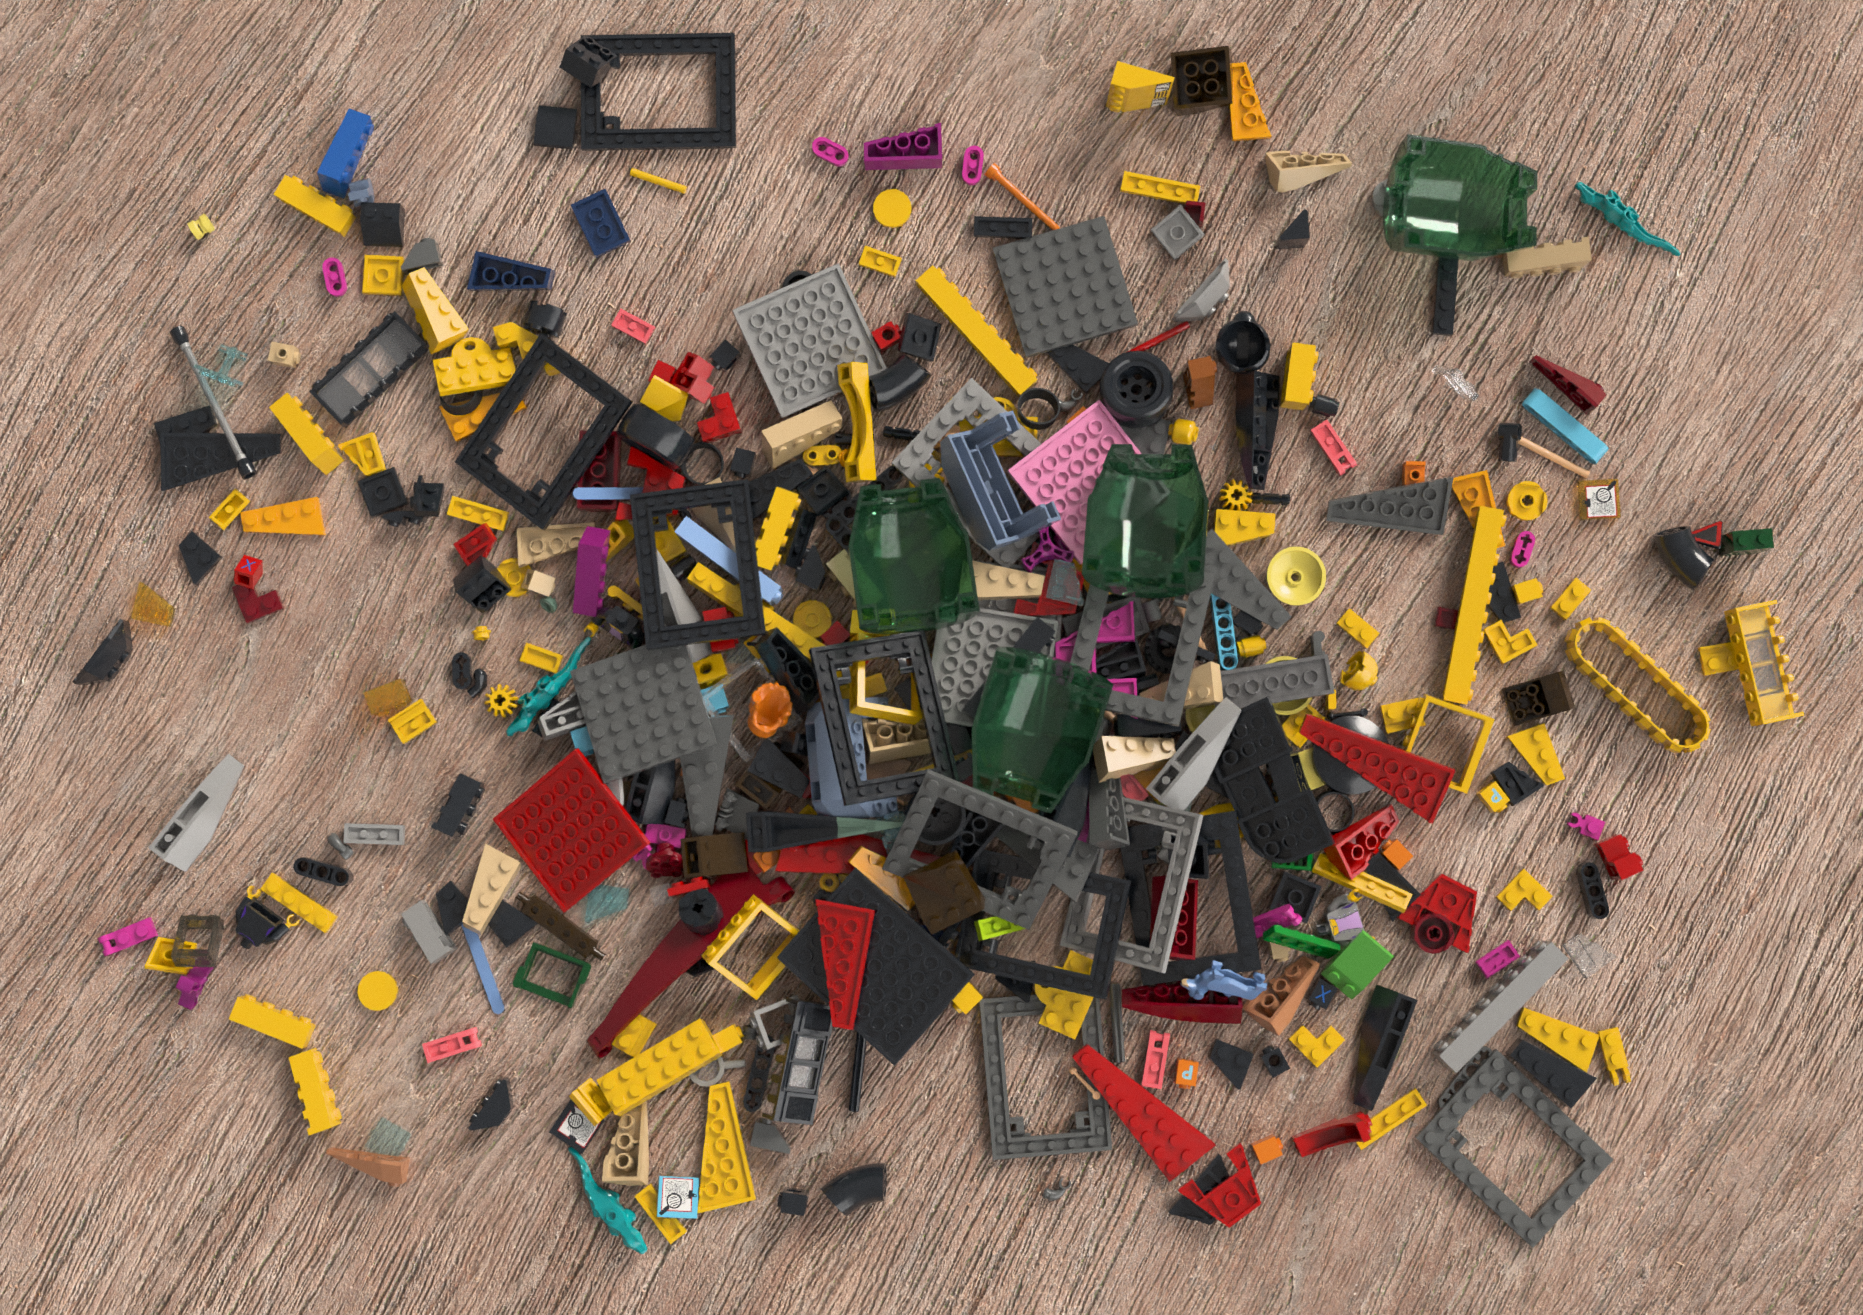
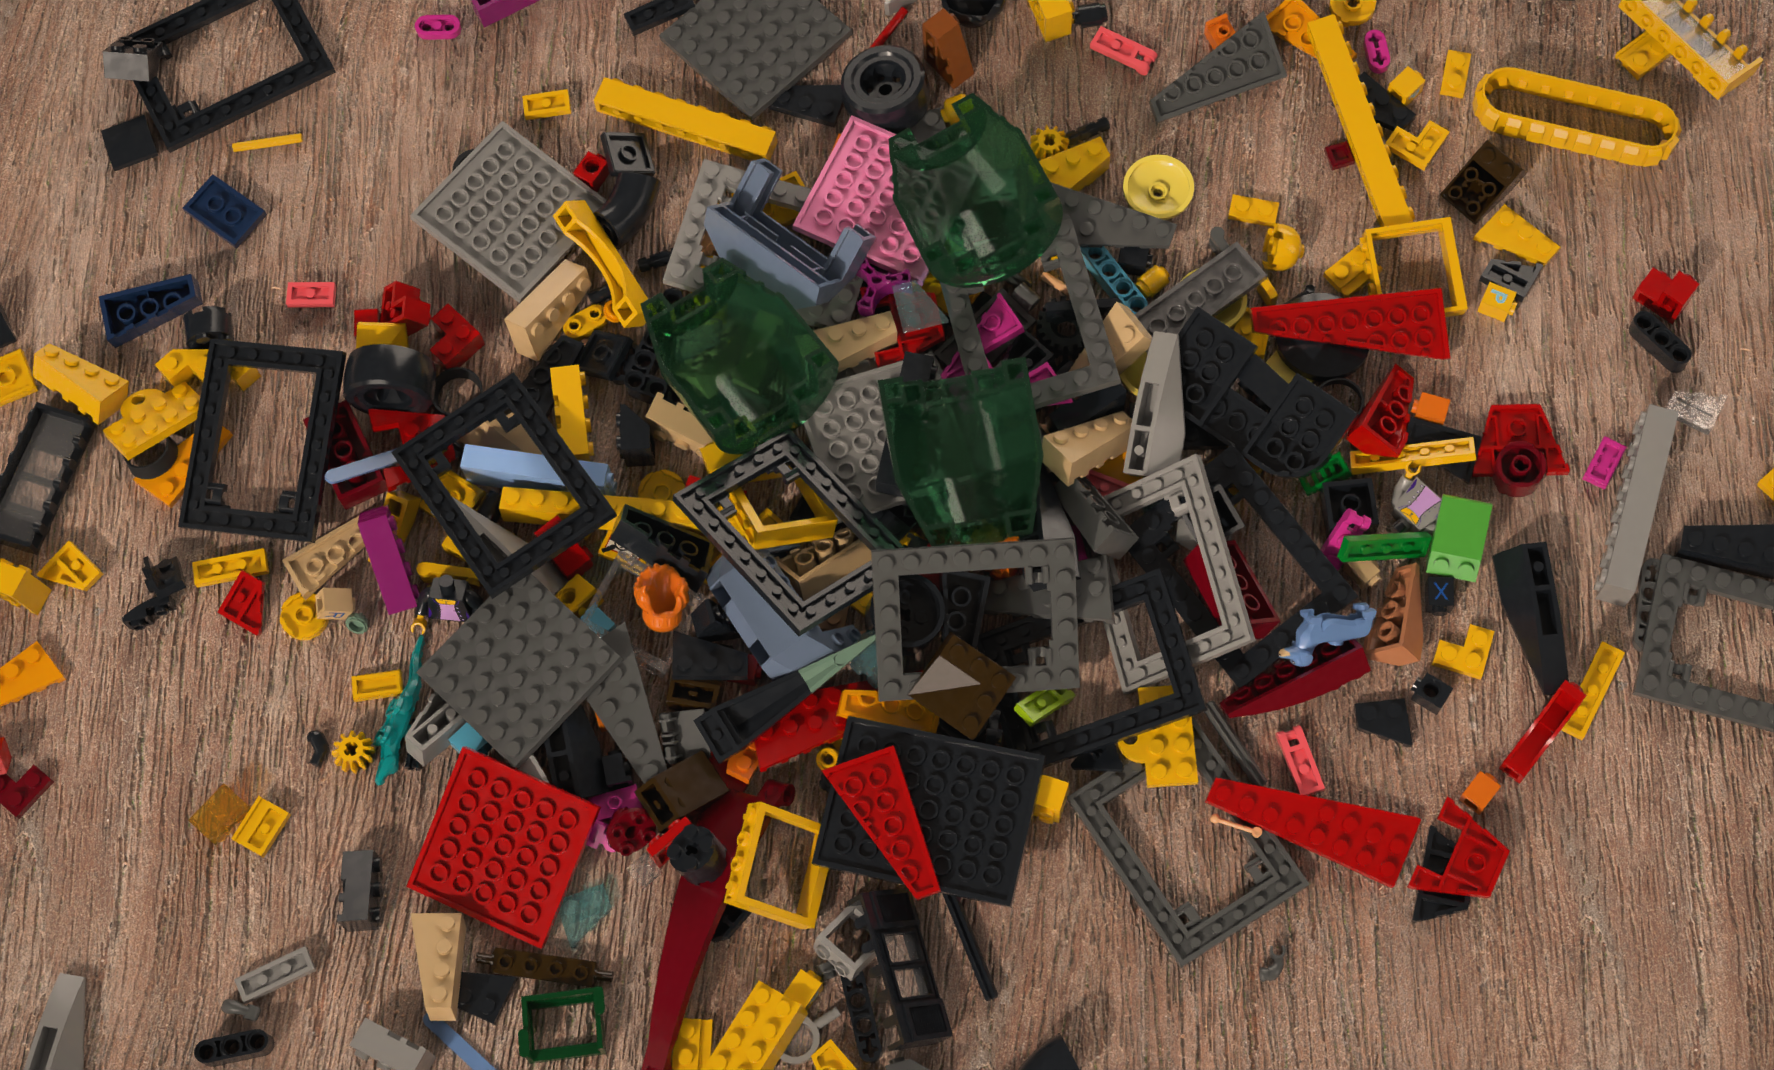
camera: 25 degrees left, 15 degrees down
(383, 492) = (110, 599): black tile -> none
(423, 254) = (40, 332): dark grey slope -> none
(452, 907) = (407, 1010): black wing -> none
(467, 670) = (287, 747): black beam -> none
(481, 584) = (270, 637): black slope -> none
(481, 633) = (295, 692): yellow plate -> none
(724, 356) = (427, 274): black brick -> none
(743, 463) = (500, 365): black brick -> none
(798, 538) = (602, 416): black plate -> none
(892, 208) = (532, 50): yellow tile -> none
(1039, 393) = (794, 146): black tyre -> none
(1068, 405) = (822, 146): dark grey arm -> none
(1186, 1073) = (1342, 756): orange brick -> none
(1256, 423) = (1028, 63): black wedge -> none
(1521, 887) = (1588, 376): yellow plate -> none
(1563, 1038) = (1719, 507): yellow wing -> none
(1588, 826) = (1614, 281): dark pink plate -> none

